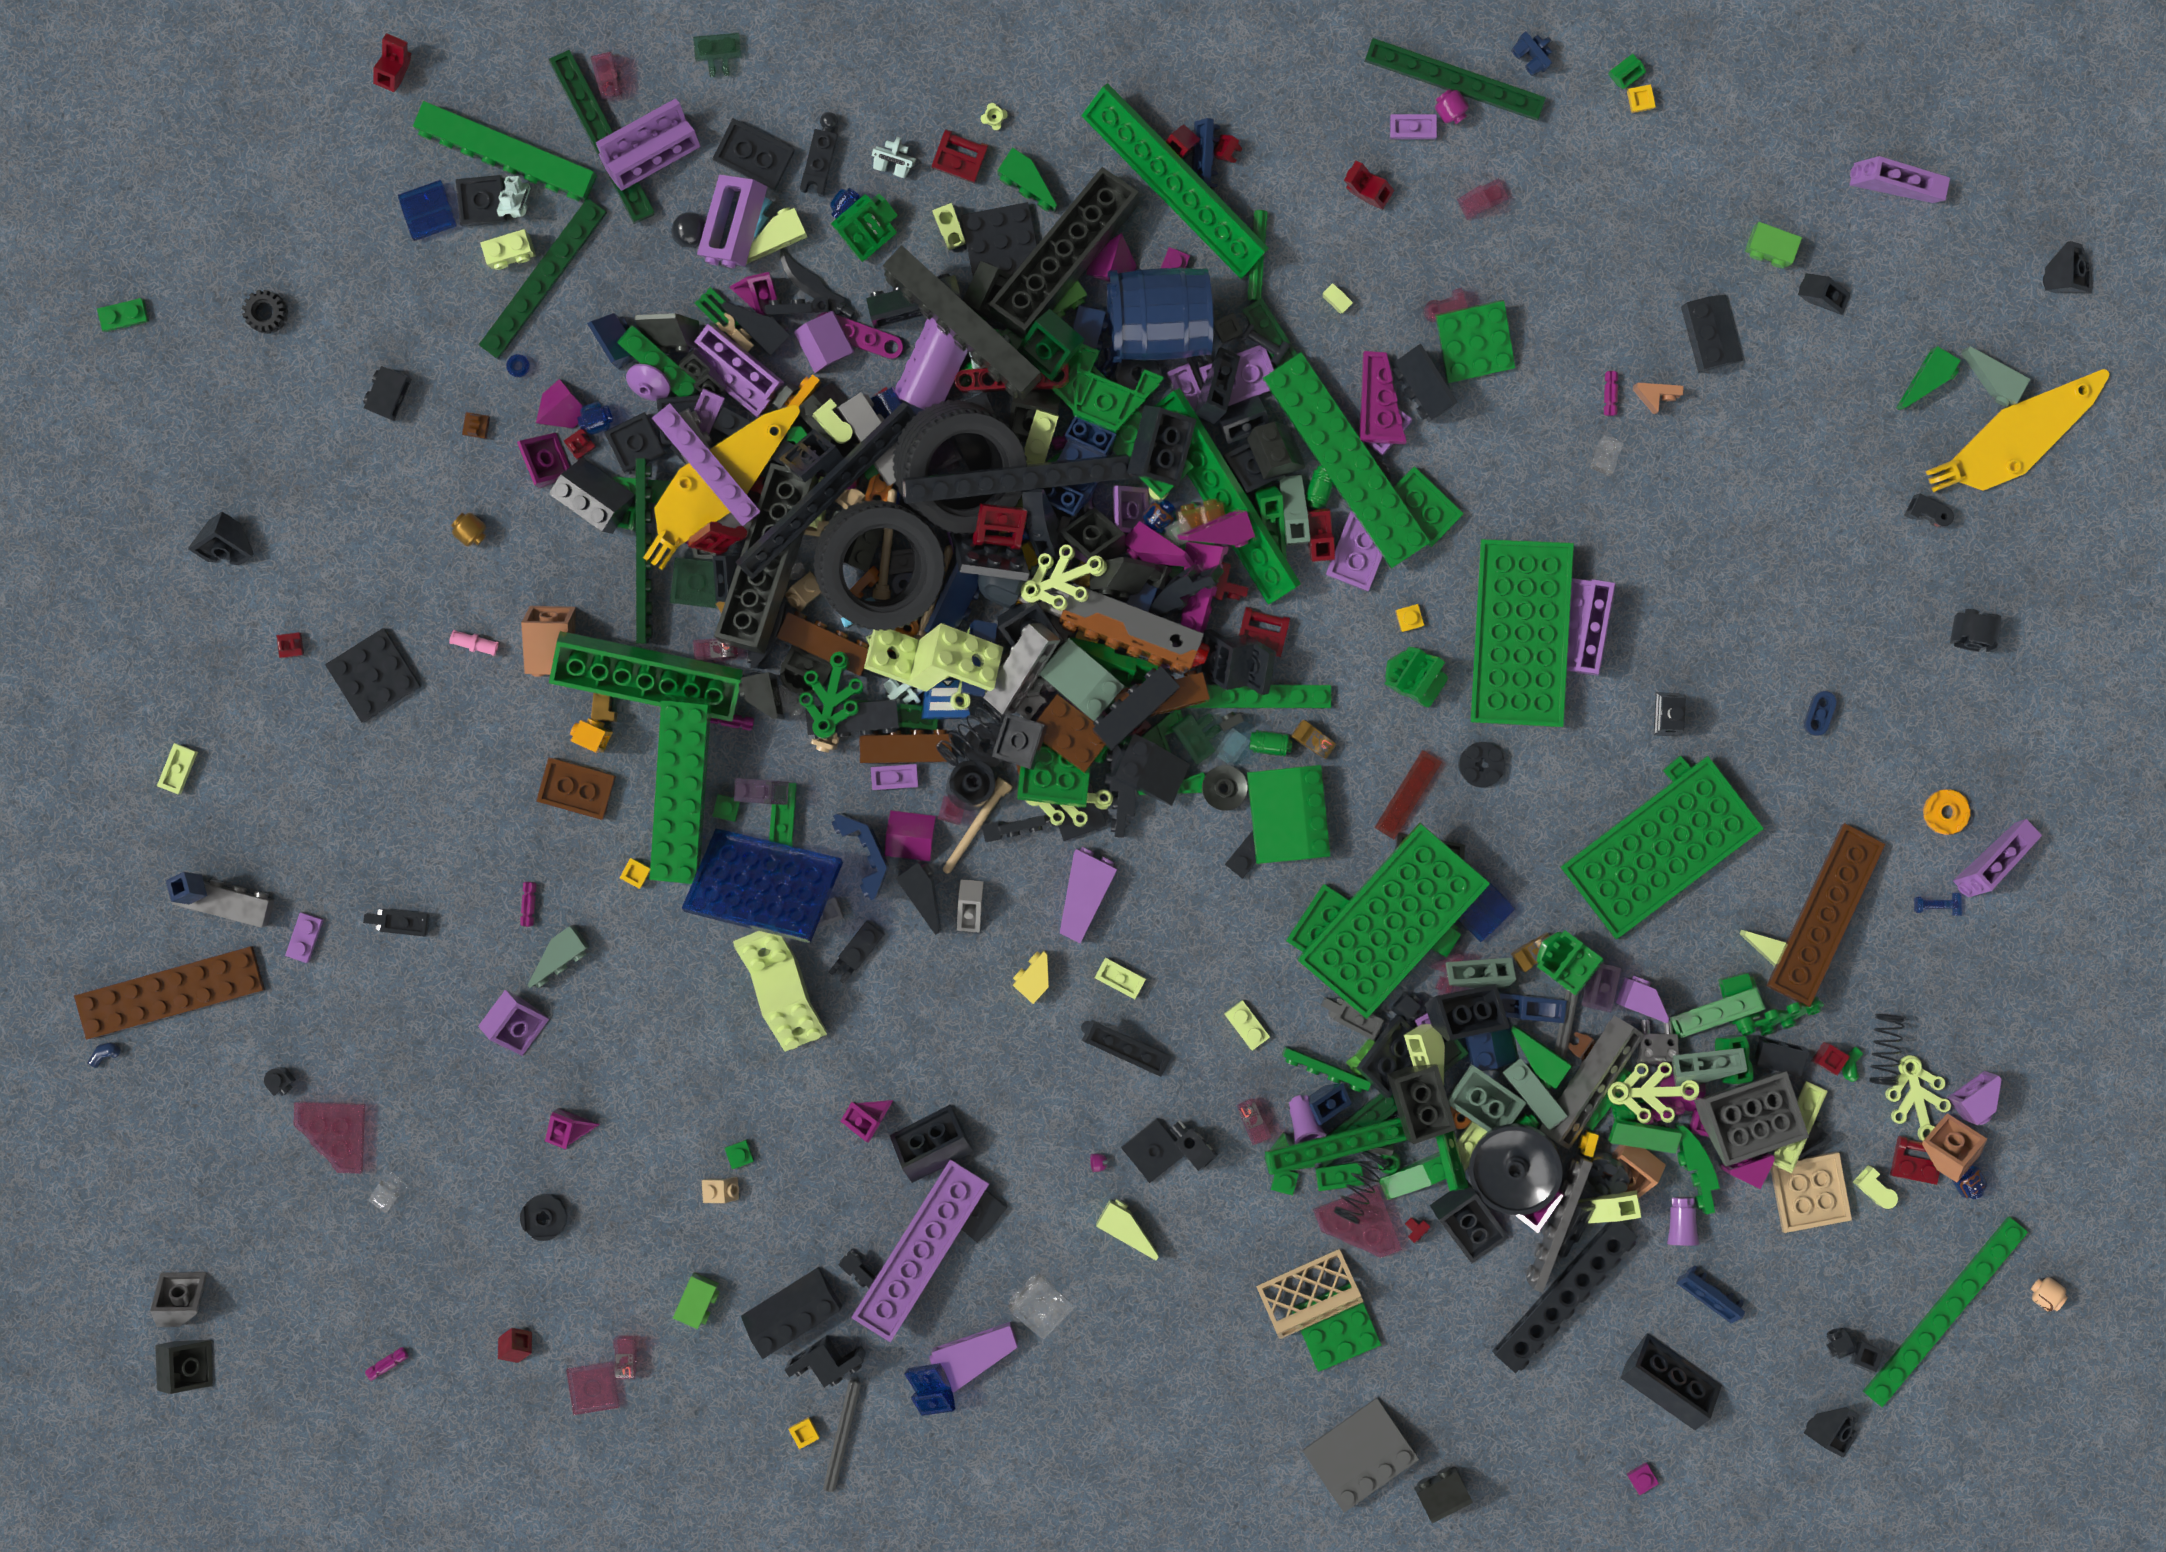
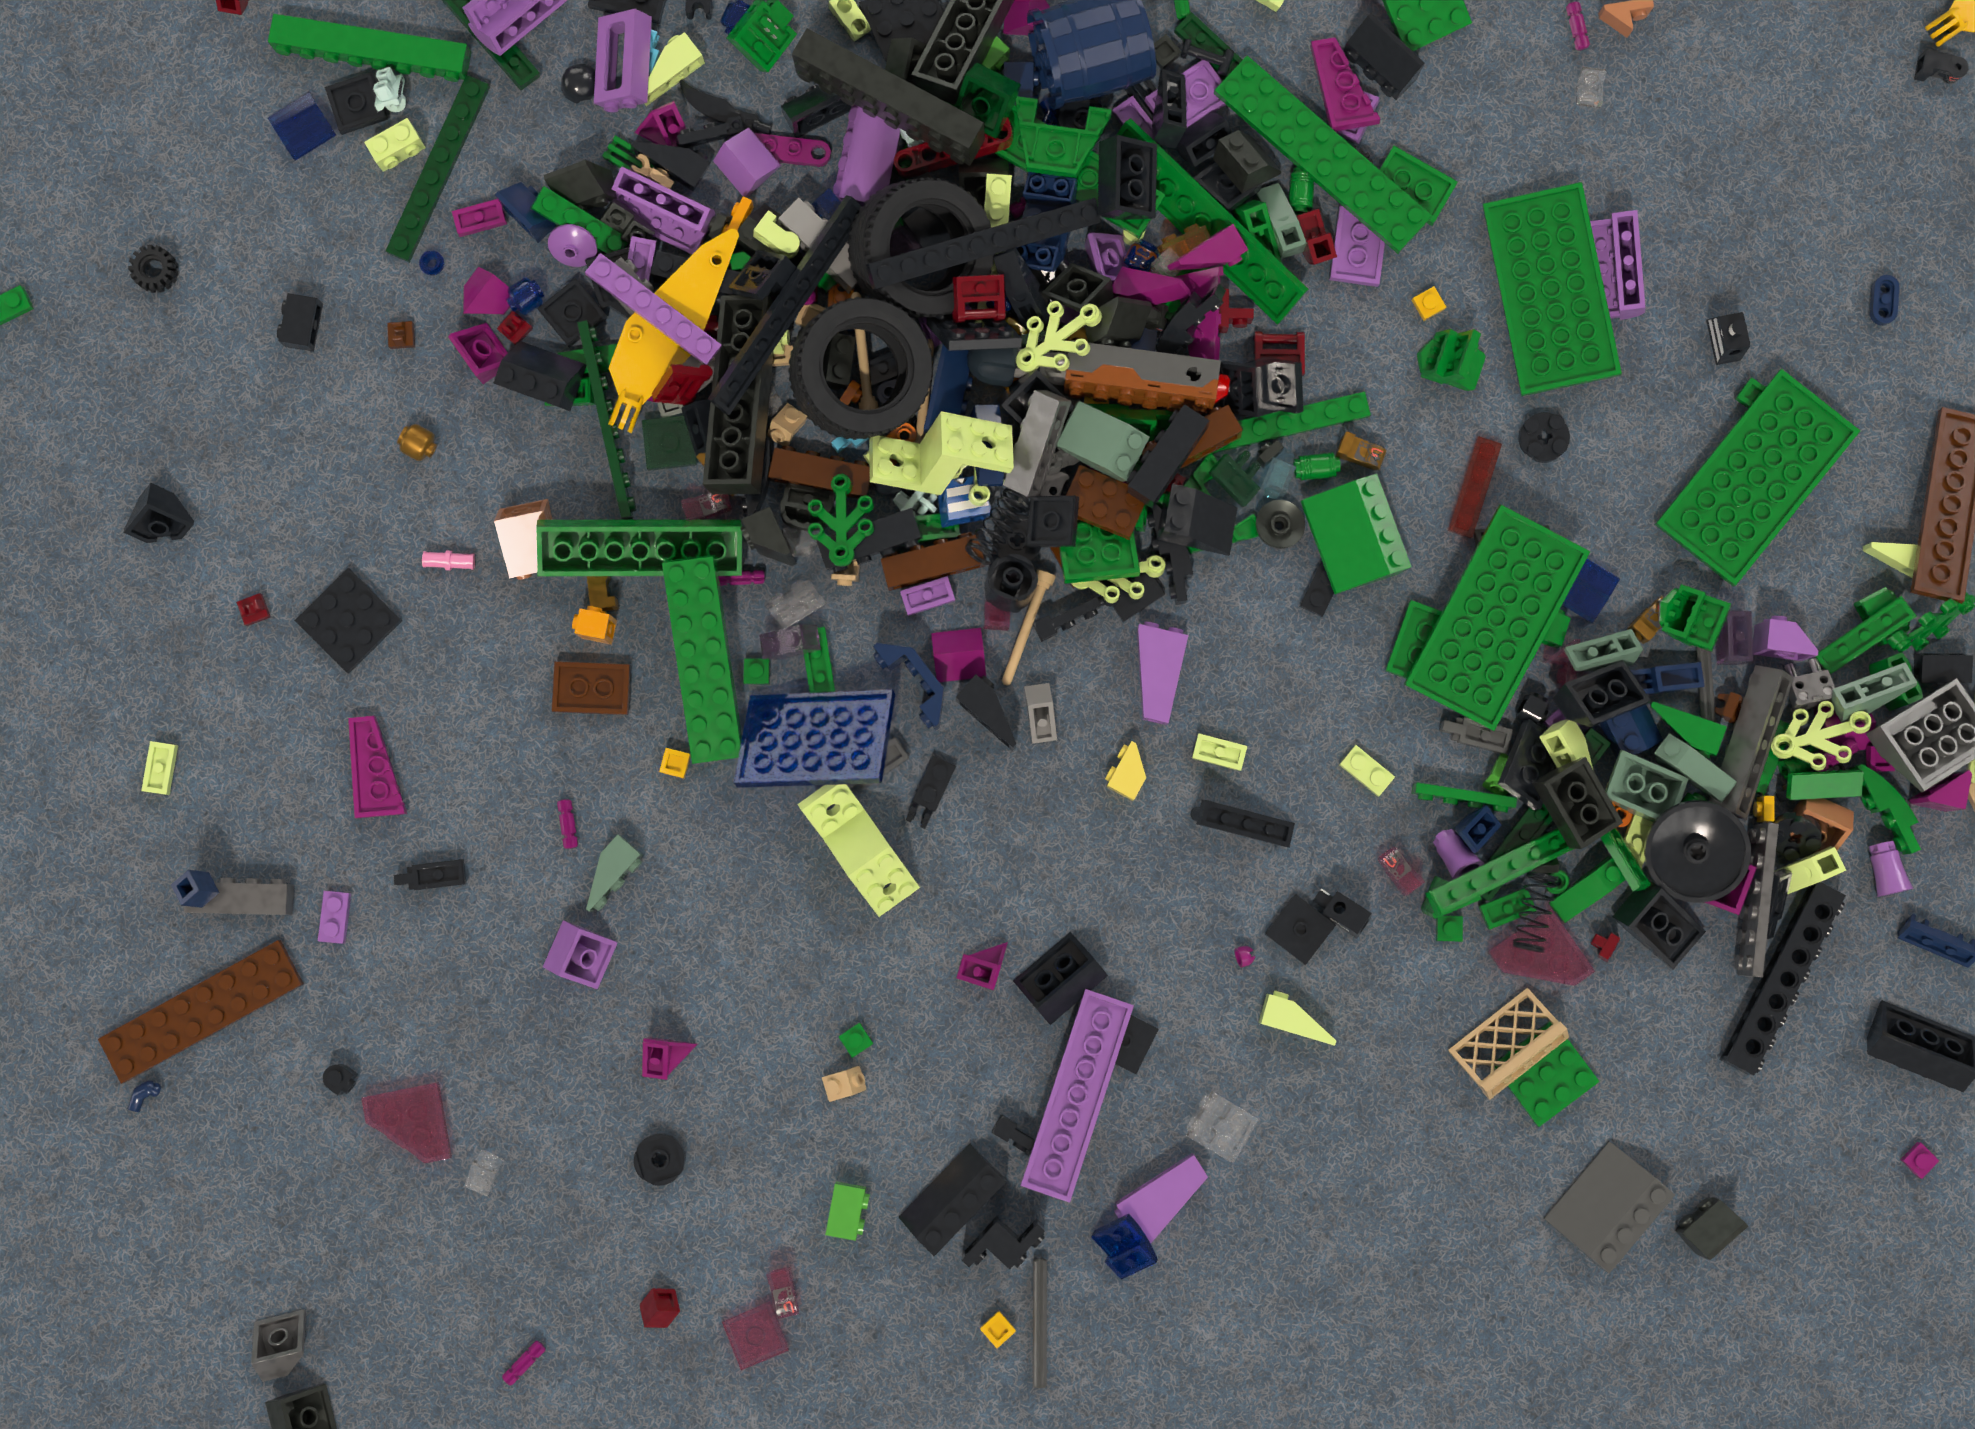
camera: 15 degrees left, 5 degrees down
(364, 822) = (372, 773): none -> magenta wing
(569, 334) = (479, 217): none -> magenta plate
(773, 758) = (794, 604): none -> clear plate

